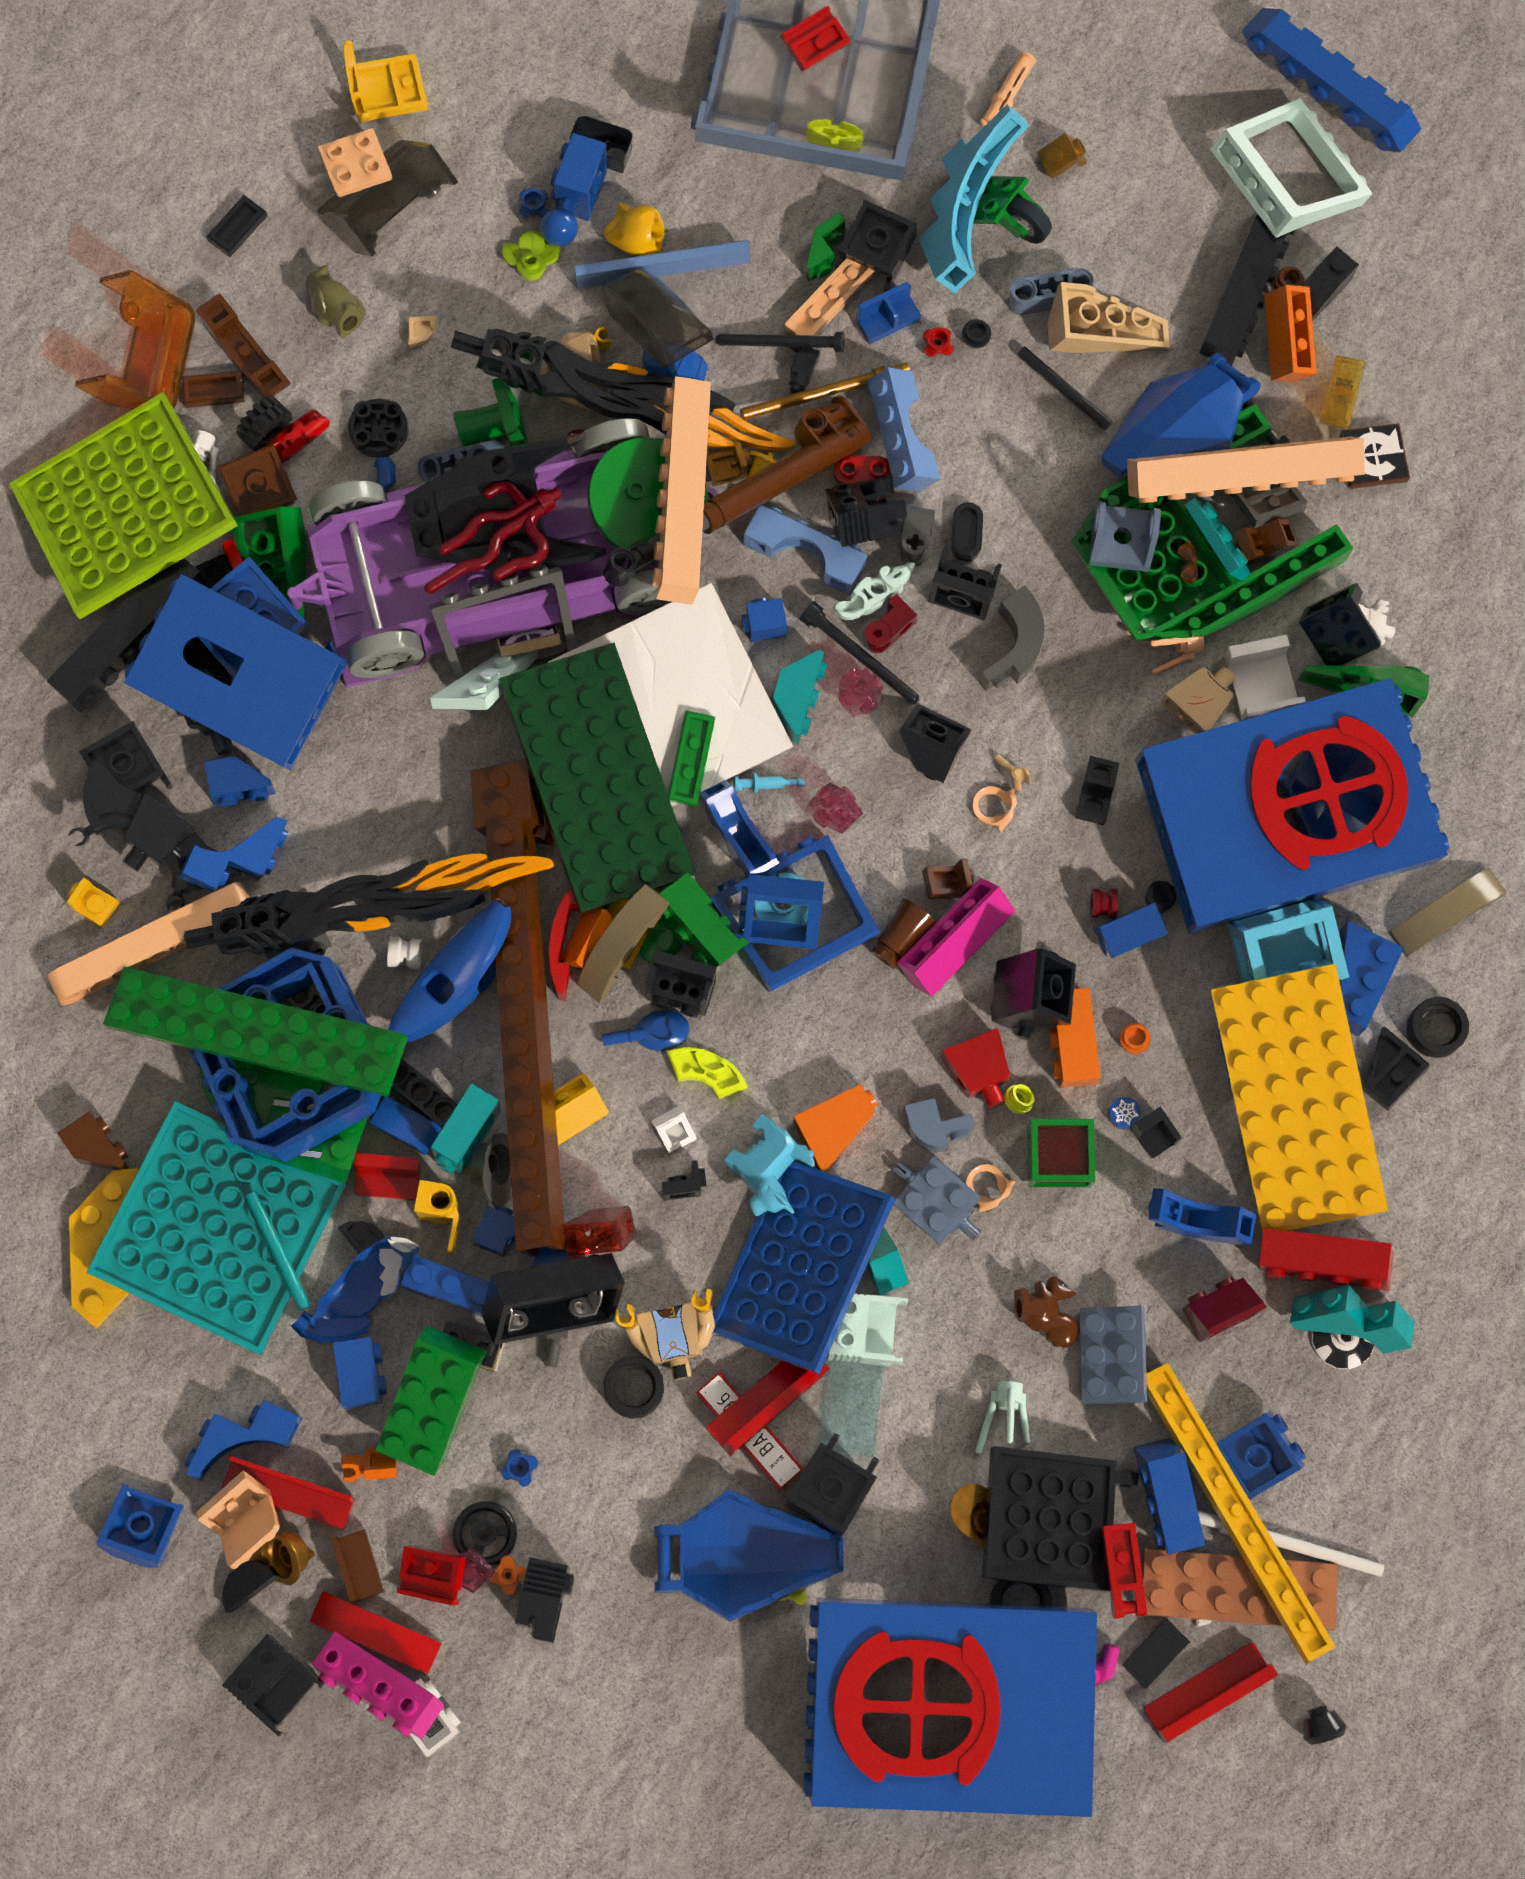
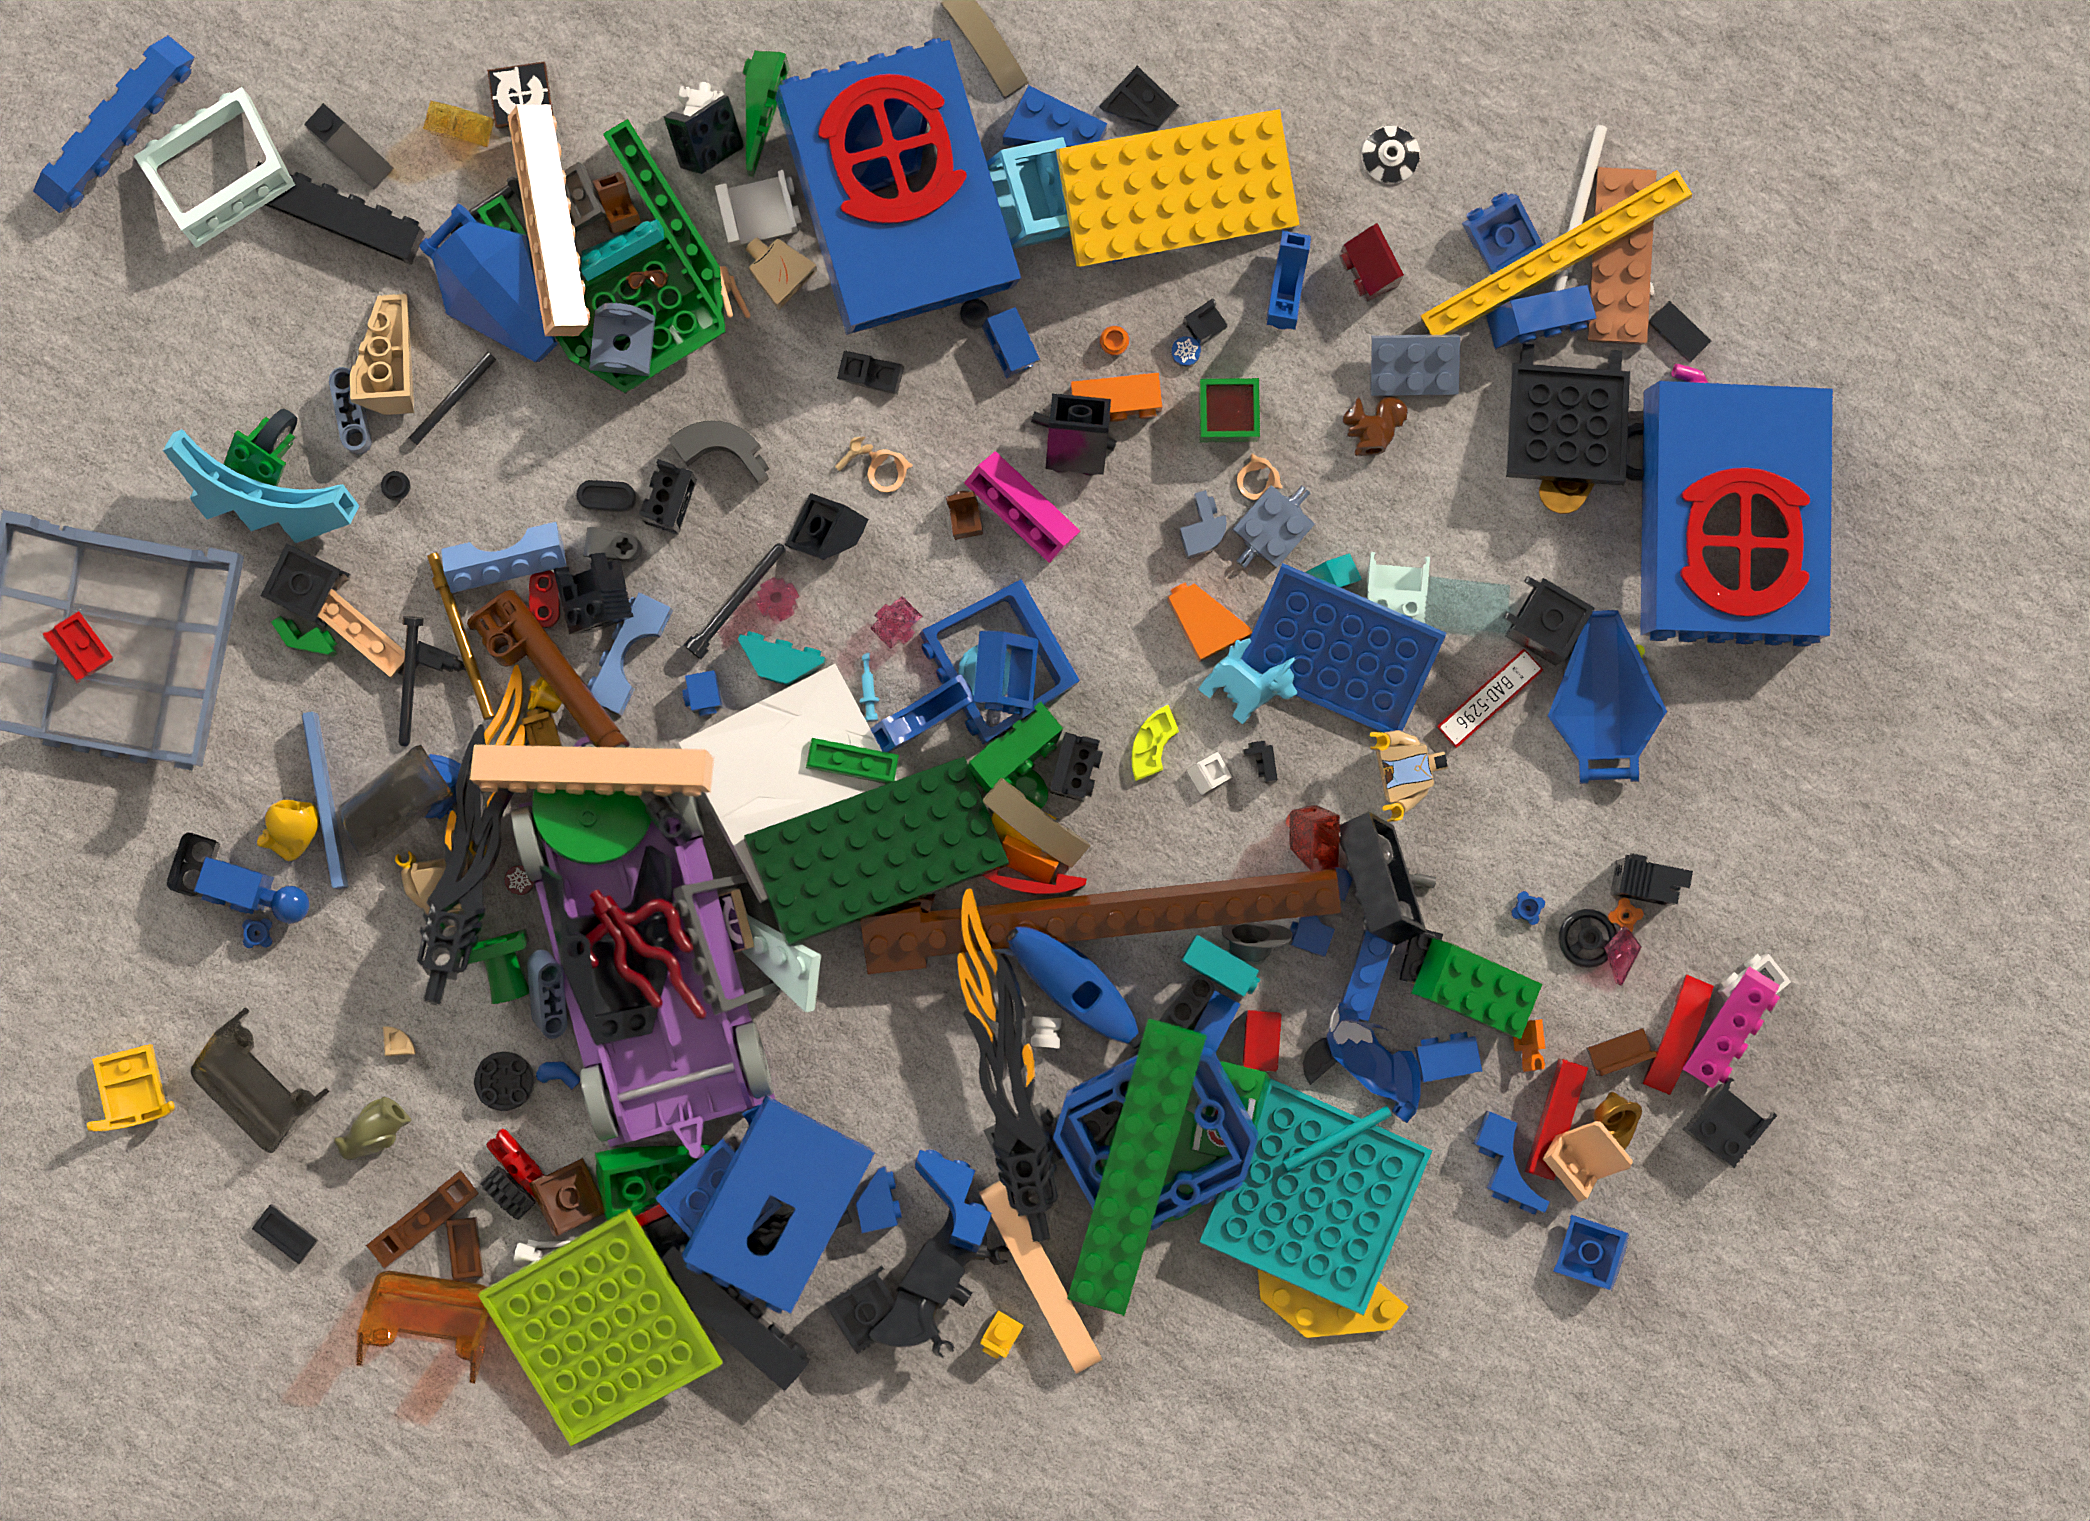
camera: 90 degrees left, 10 degrees up
(90, 1145) = (1238, 1320): reddish brown slope -> none
(245, 1583) = (1641, 1153): black tile -> none
(354, 162) = (222, 1114): light nougat bracket -> none
(427, 1197) = (1297, 1000): yellow piece -> none
(431, 1575) = (1629, 984): red plate -> none
(530, 255) = (310, 935): lime plate -> none
(577, 1107) = (1190, 863): yellow panel -> none
(630, 1363) = (1467, 787): black tyre -> none
(654, 1032) = (1115, 792): blue piece -> none
(761, 1405) = (1471, 689): red panel -> none
(843, 137) = (187, 626): neon yellow tile -> none
(872, 593) = (675, 586): light aqua animal -> none
(883, 633) = (716, 578): dark red leg -> none
(887, 313) = (377, 574): blue panel -> none
(902, 933) = (1019, 558): reddish brown plant -> none
(937, 334) = (397, 520): red plate -> none
(979, 1066) = (1146, 485): red torso -> none
(1009, 1397) = (1455, 460): light aqua plant -> none
(1010, 86) = (136, 457): light nougat pin -> none
(1019, 1099) = (1170, 448): neon yellow plate -> none
(1062, 155) = (198, 397): pearl gold bracket -> none
(1104, 903) = (984, 367): dark red wheel -> none
(1124, 1569) = (1612, 357): red plate -> none
(1209, 1692) = (1713, 283): red panel -> none
(1290, 333) = (398, 173): orange brick -> none
(1291, 273) = (330, 165): reddish brown plate -> none
(1322, 1725) = (1741, 184): black cone -> none
(1327, 1259) = (1323, 167): red wedge -> none
(1345, 1313) = (1374, 150): teal arch -> none
(1448, 1006) = (1108, 36): black tyre -> none

